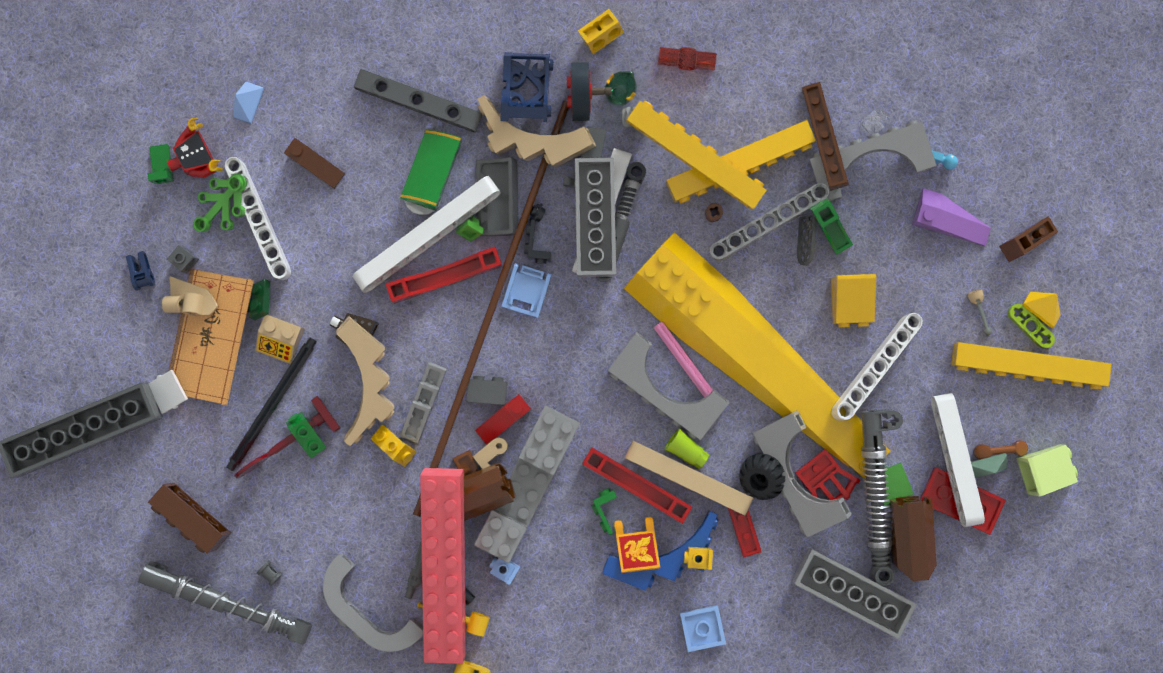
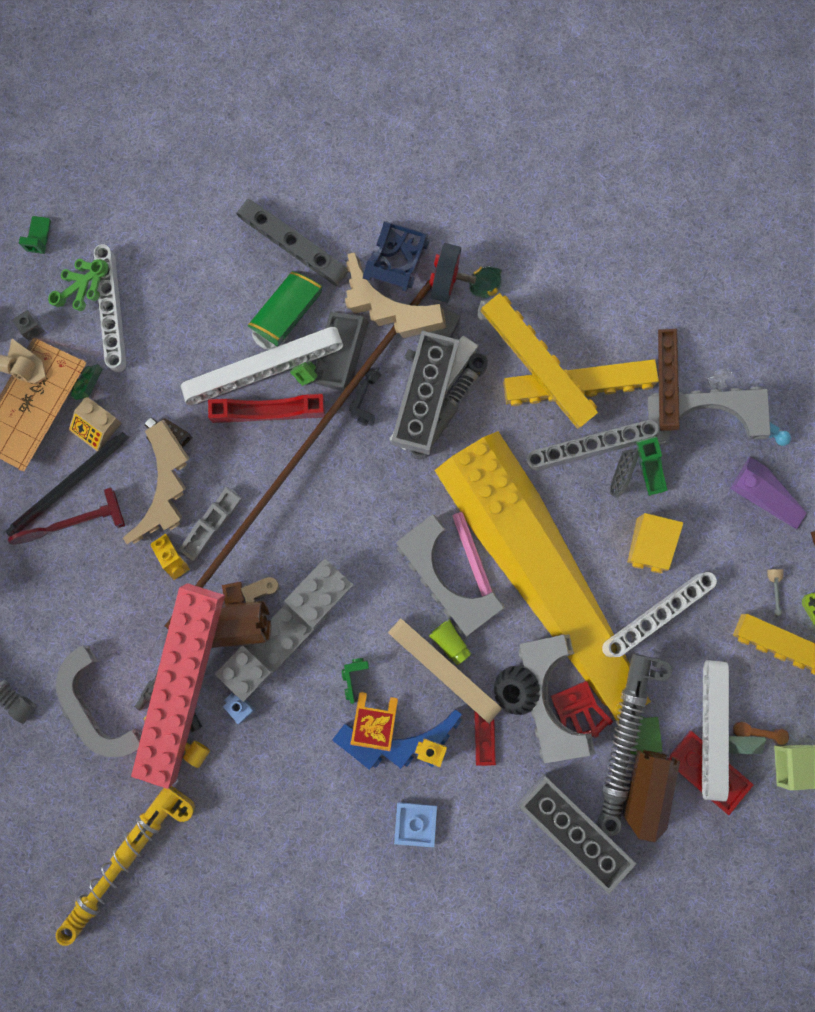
camera: 20 degrees right, 5 degrees down
(193, 153) = (69, 231): torso -> none
(247, 101) = (134, 200): light blue slope -> none
(269, 573) = (12, 644): dark grey bush -> none
(305, 434) = (88, 522): green bracket -> none
(314, 163) = (178, 271): reddish brown slope -> none
(487, 391) = (274, 530): dark grey brick -> none
(503, 419) = (282, 561): red slope -> none
(528, 288) = (343, 443): light blue container -> none
(601, 31) = (482, 225): yellow brick -> none
(637, 485) = (391, 662): red arch -> none
(687, 58) = (556, 273): clear red piece -> none
(719, 211) = (539, 417): reddish brown bush -> none

